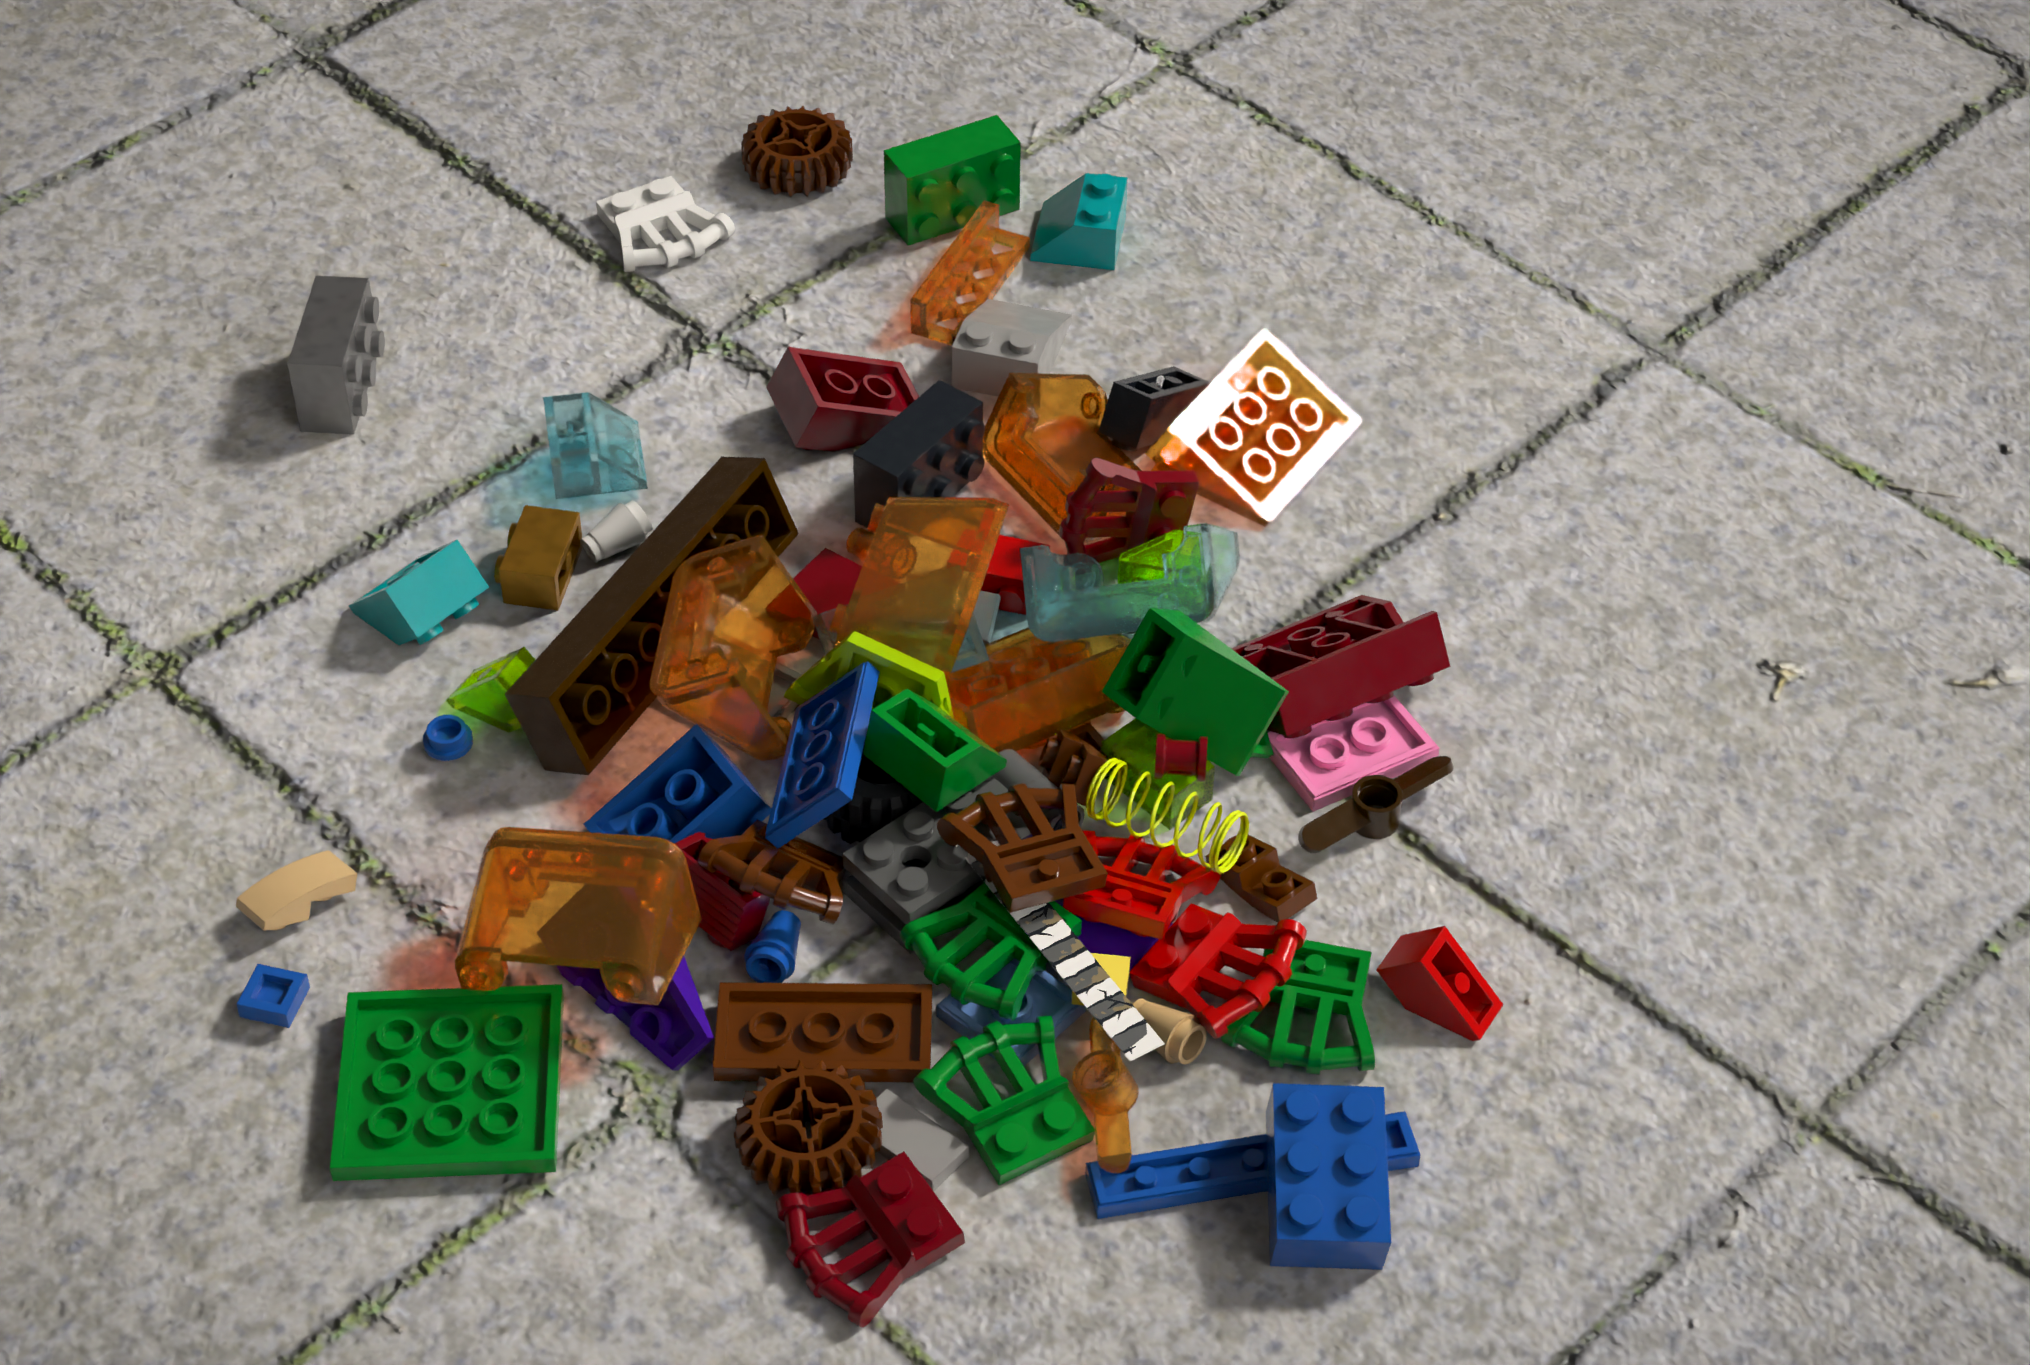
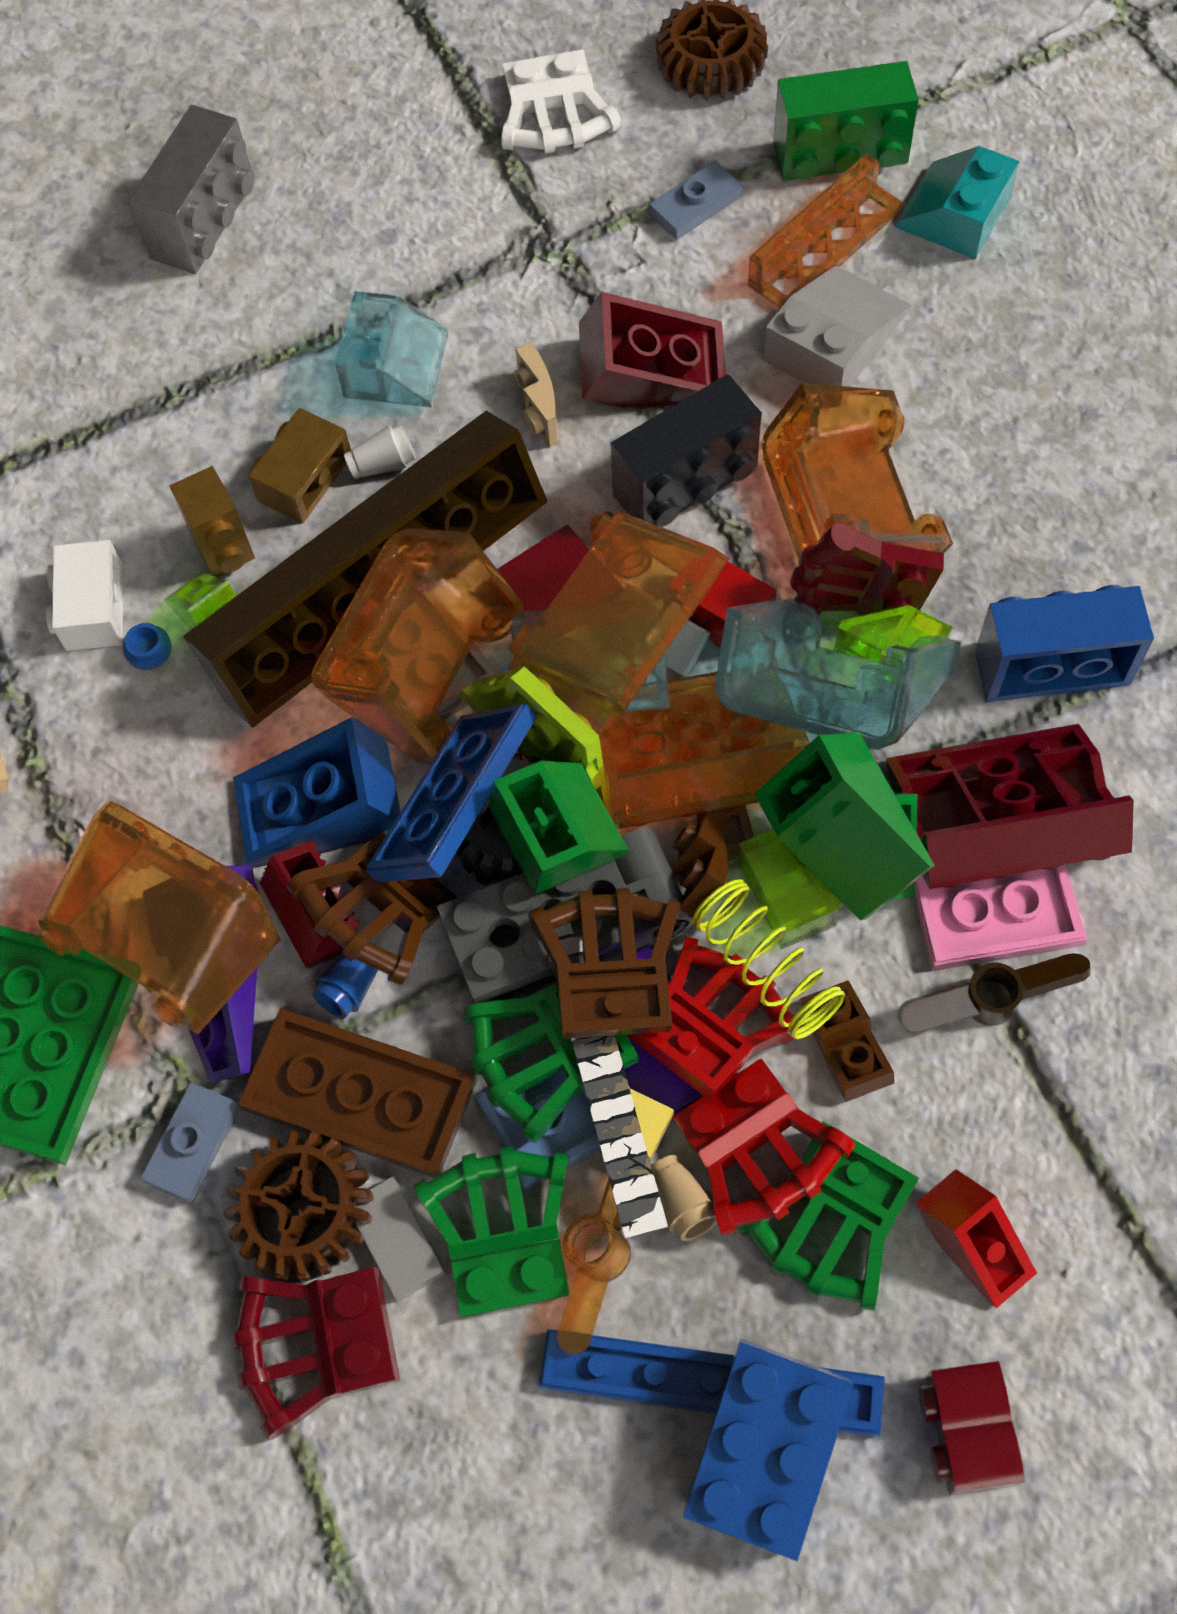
camera: 25 degrees right, 20 degrees up
(369, 709) = (86, 595): none -> white brick
(423, 595) = (152, 474): teal slope -> none
(479, 611) = (212, 521): none -> pearl gold brick
(675, 1119) = (190, 1142): none -> sand blue plate
(745, 439) = (538, 393): none -> tan slope
(832, 274) = (695, 199): none -> sand blue plate
(1148, 405) = (946, 438): black slope -> none
(1181, 757) = (804, 897): dark red bush -> none
(1257, 431) = (1041, 498): clear orange slope -> none
(1323, 527) = (1063, 643): none -> blue brick
(1498, 1123) = (972, 1427): none -> dark red brick

